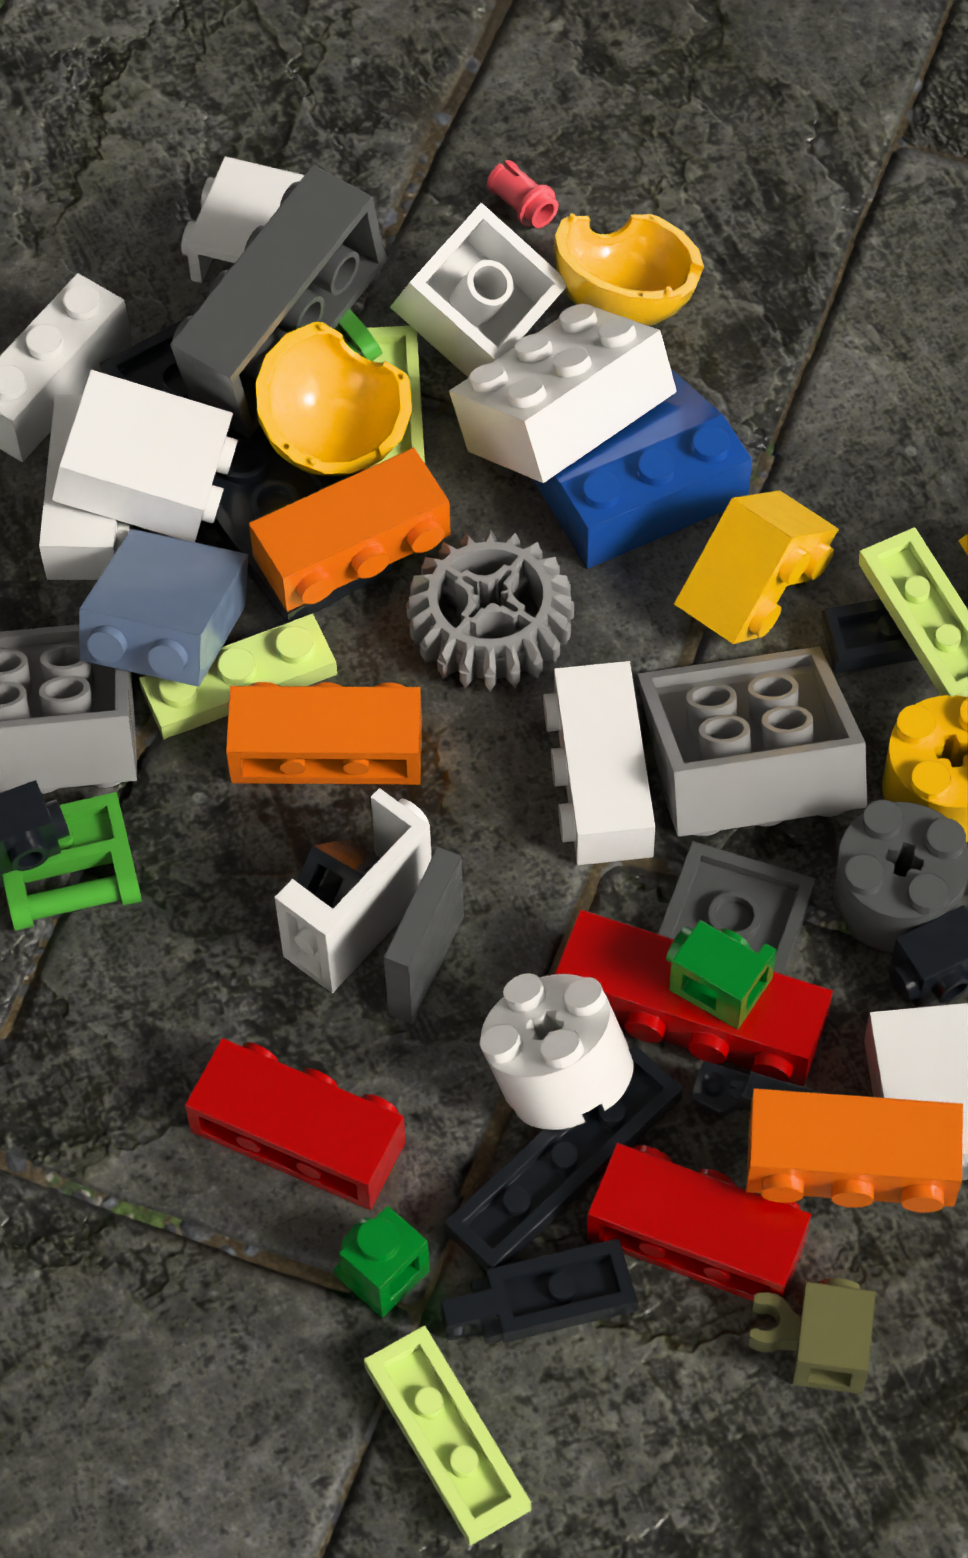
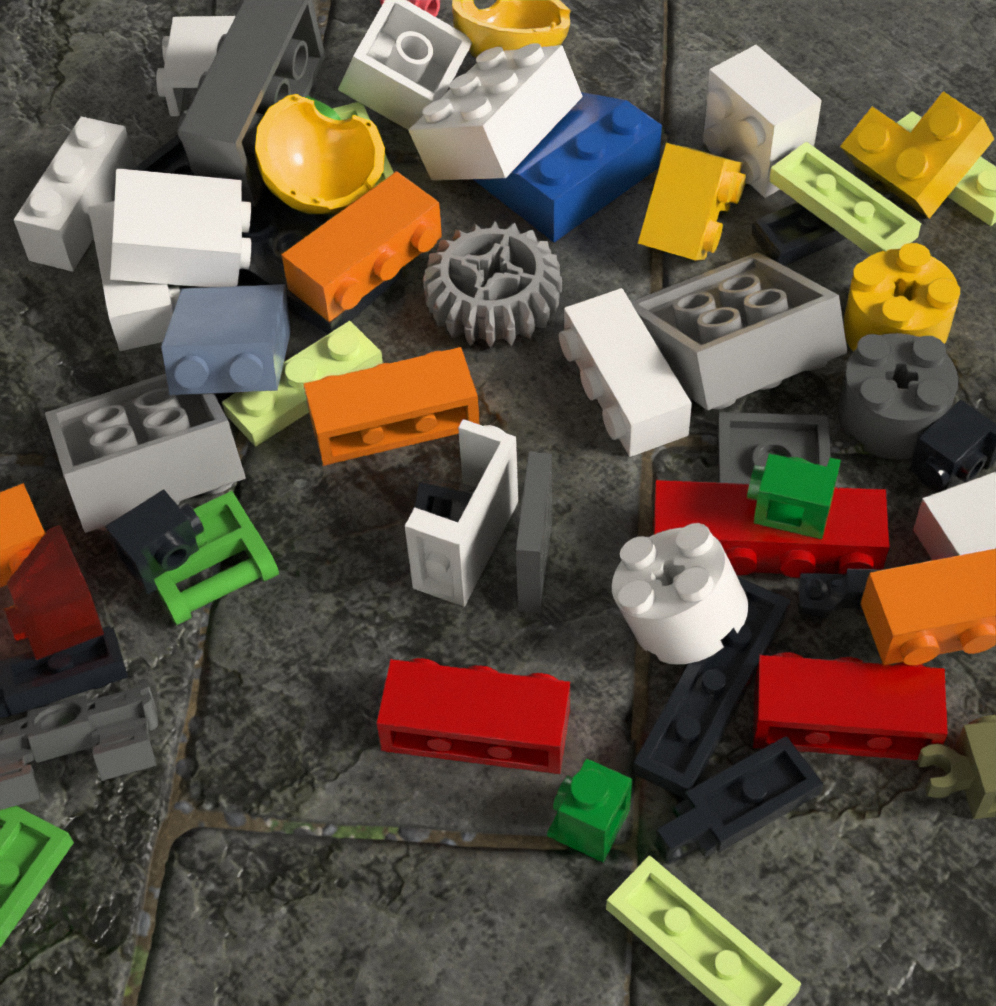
camera: 15 degrees left, 5 degrees down
(873, 474) = (758, 115): none -> white brick

